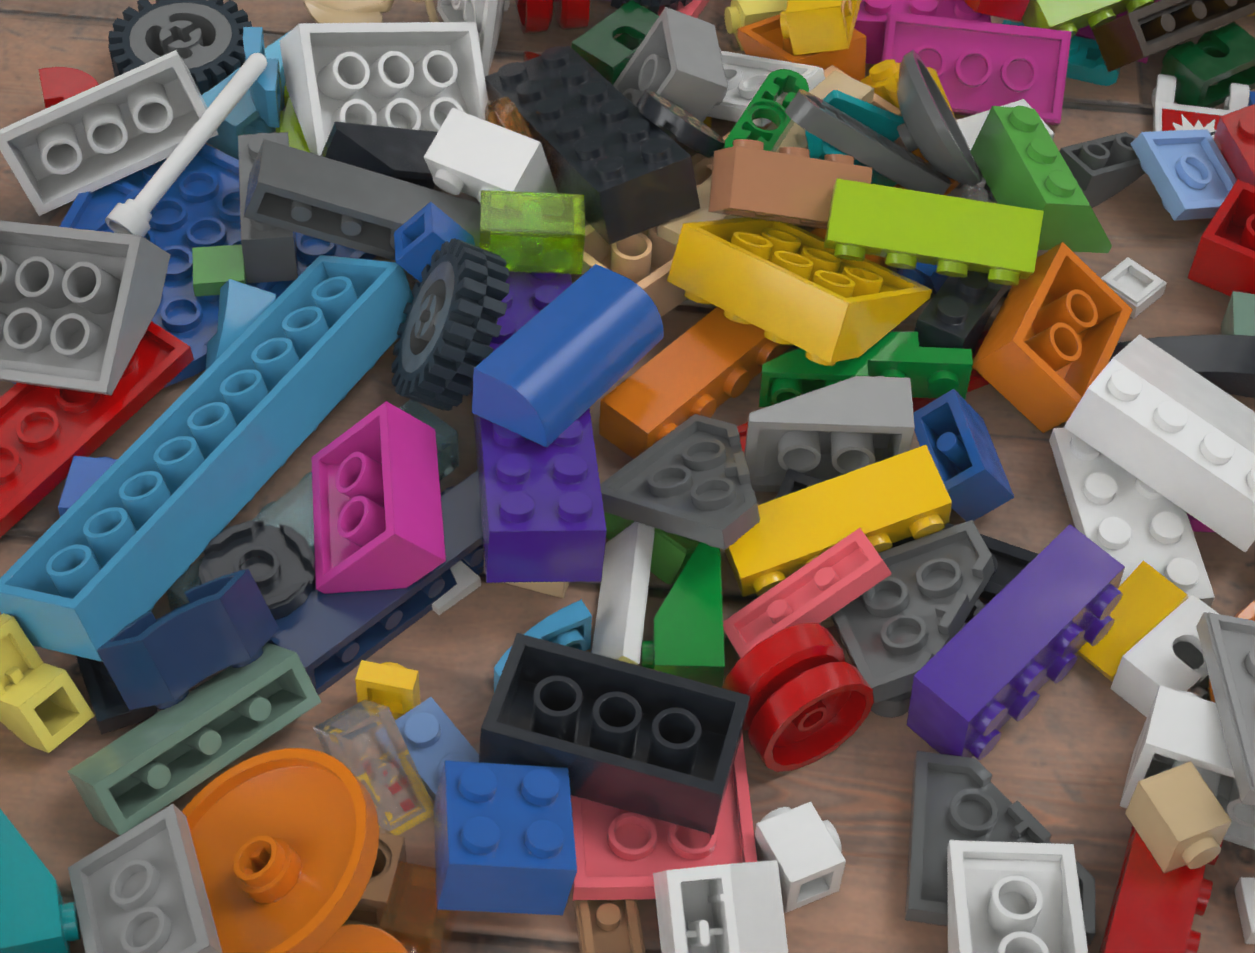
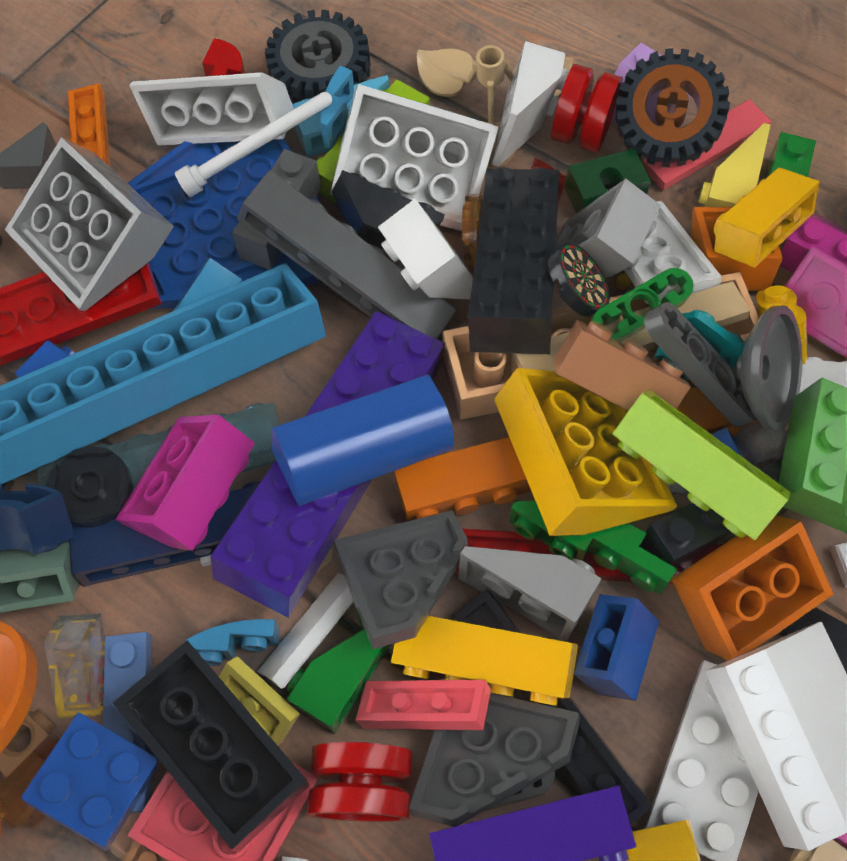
camera: 35 degrees right, 15 degrees up
(215, 266) = (220, 242): bright green tile -> none
(389, 686) = (125, 609): yellow plate -> none
(424, 235) = (347, 301): blue brick -> none
(450, 324) = (315, 366): black wheel -> none
(534, 230) = (416, 319): clear neon green brick -> none

